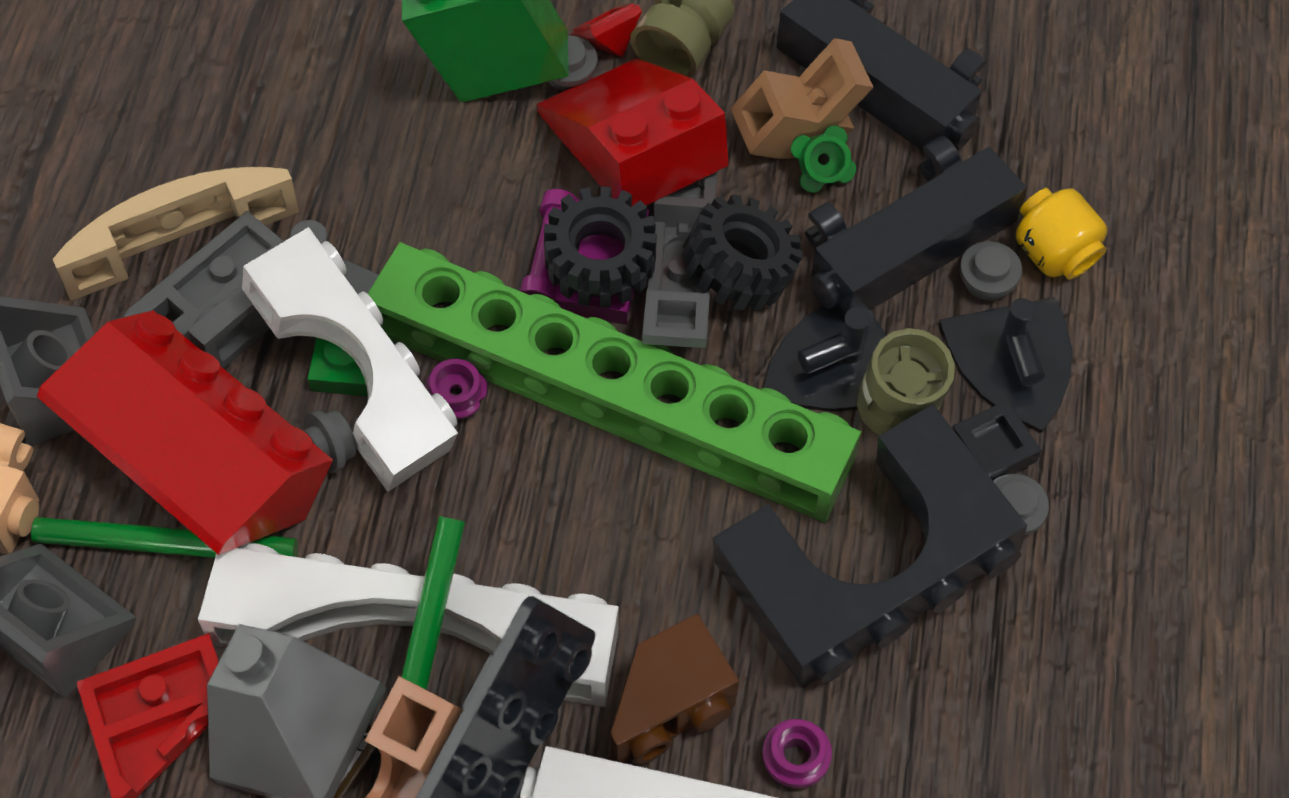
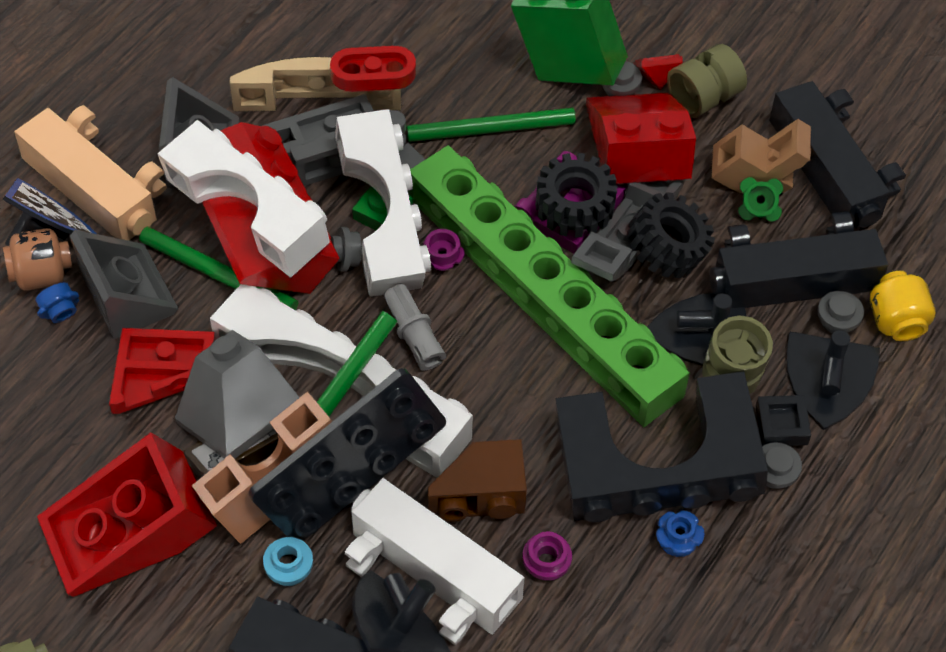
camera: 25 degrees right, 5 degrees down
(95, 407) = (209, 167): none -> white arch
(249, 174) = (373, 68): none -> red plate
(432, 187) = (490, 124): none -> green bar
(482, 517) = (414, 328): none -> light grey axle
(939, 663) = (677, 544): none -> blue plate

